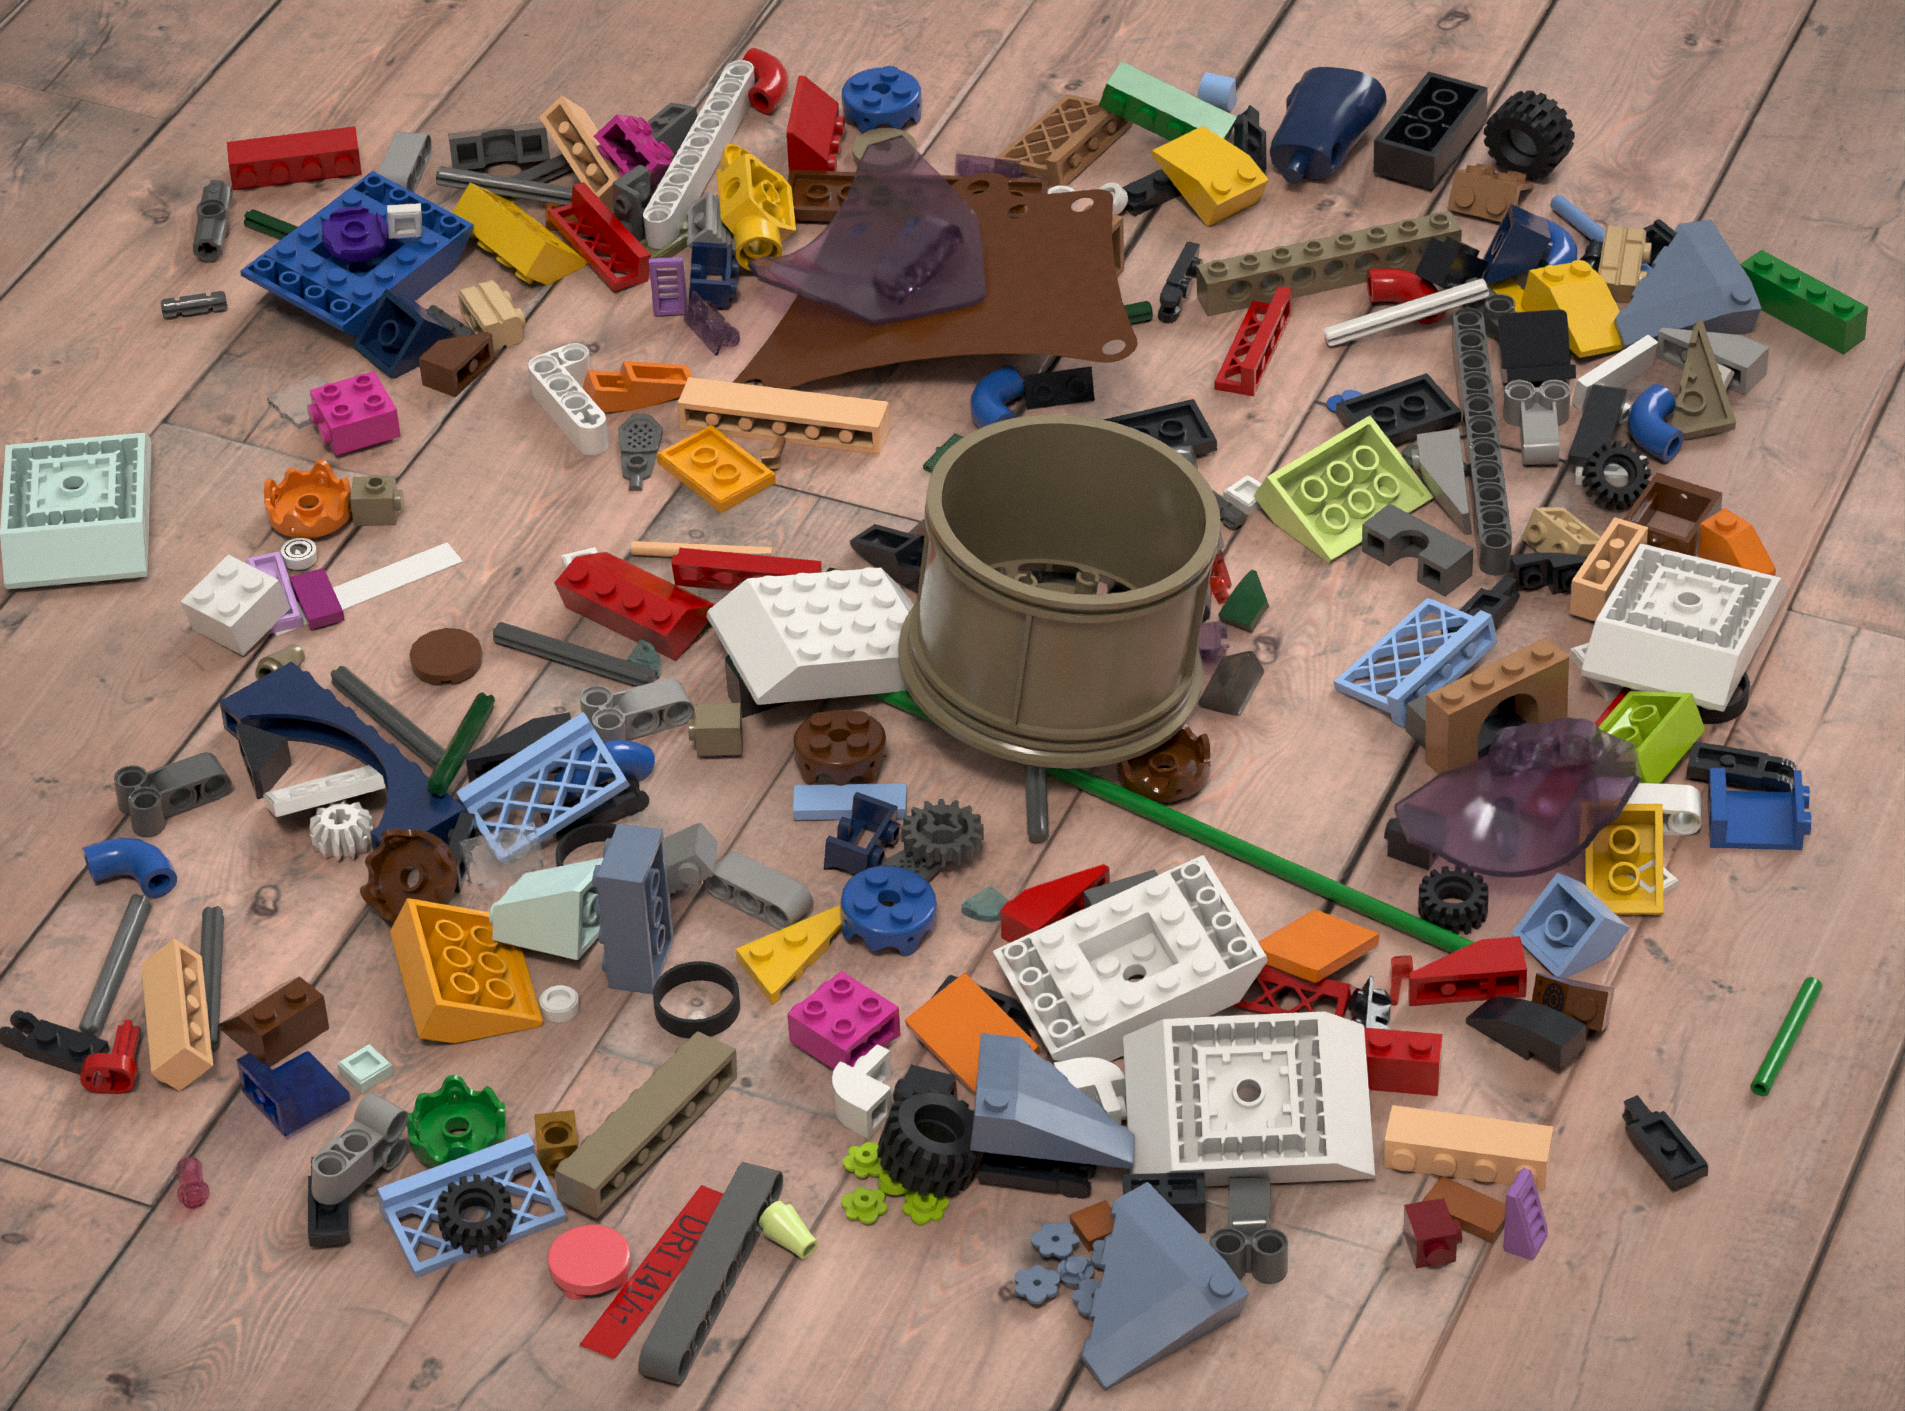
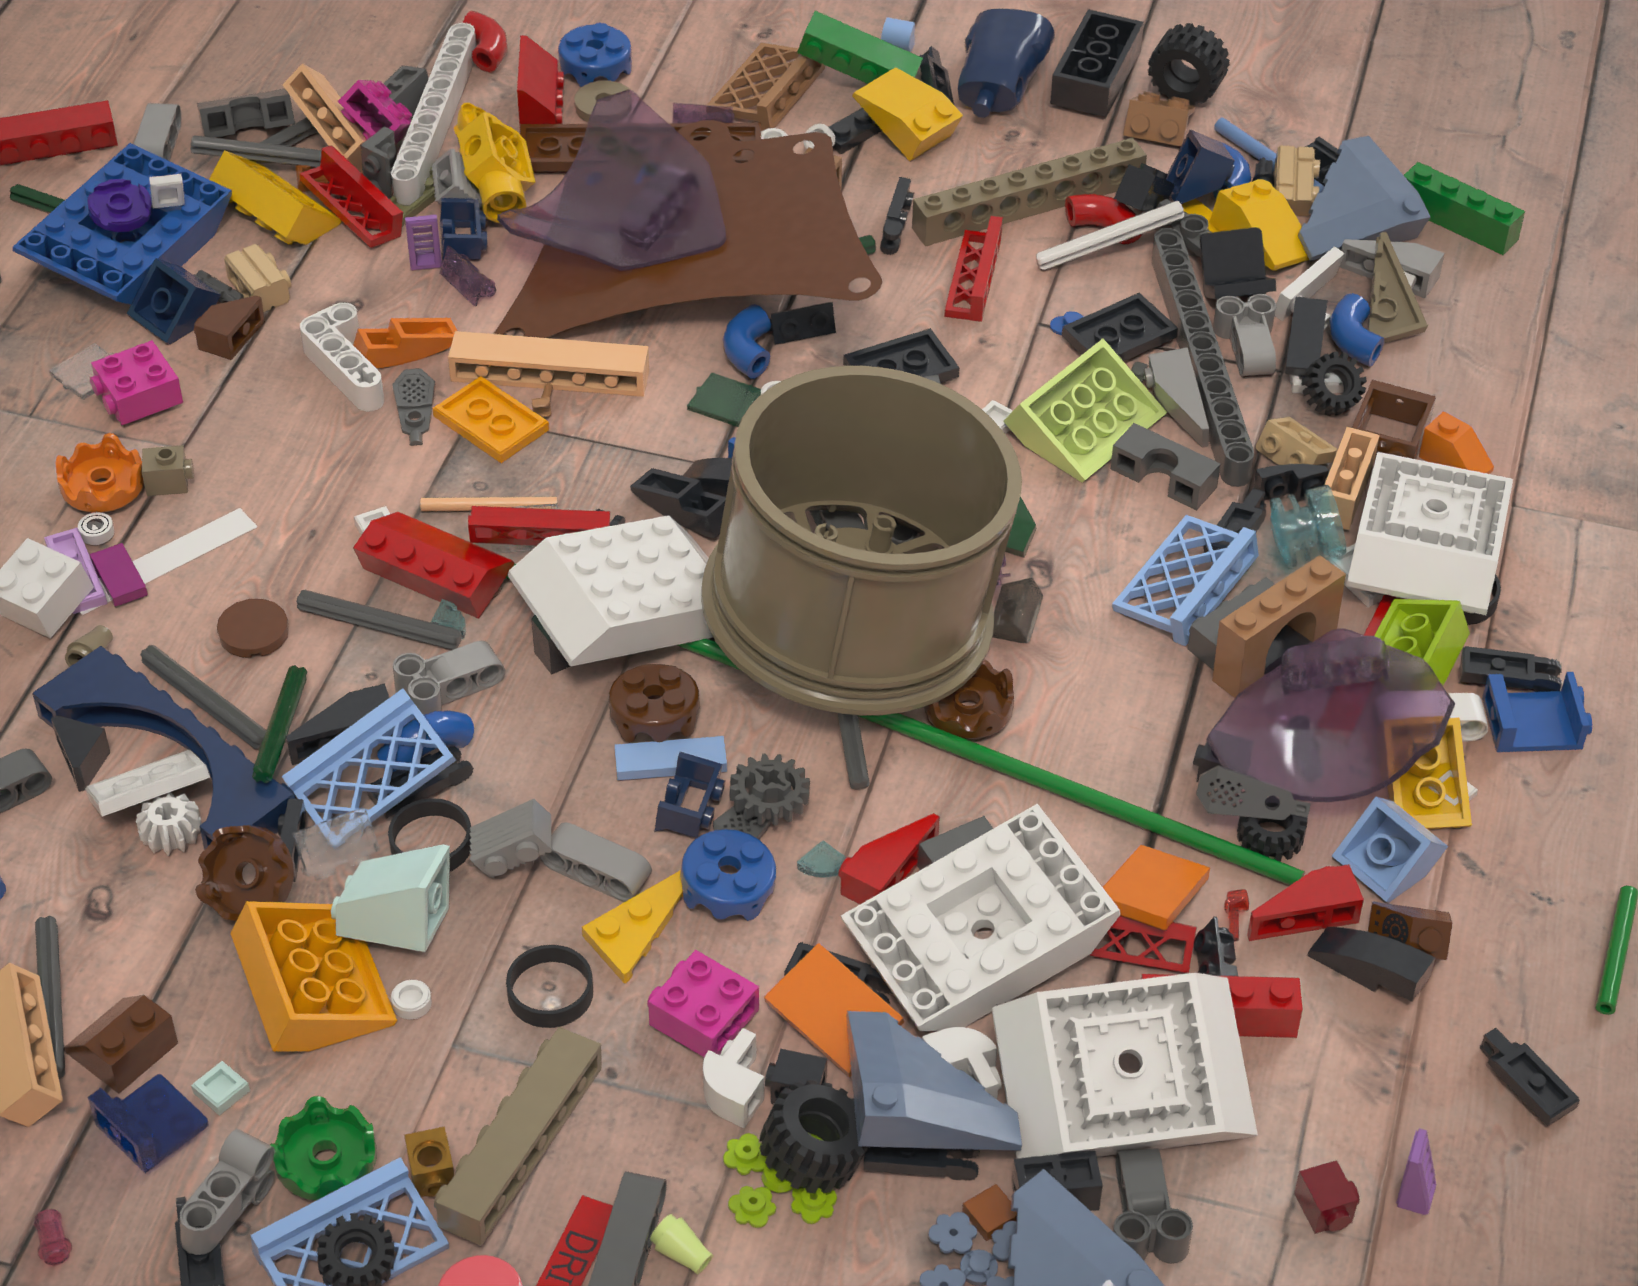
camera: 10 degrees left, 5 degrees up
(634, 908) = (480, 899): sand blue brick -> none
(717, 729) = (531, 691): dark tan brick -> none
(1433, 867) = (1253, 796): none -> dark grey piece
(1466, 1146) = (1343, 1096): light nougat brick -> none
(1474, 1210) = (1362, 1165): dark orange tile -> none
(1550, 613) = (1307, 526): none -> clear light blue wheel

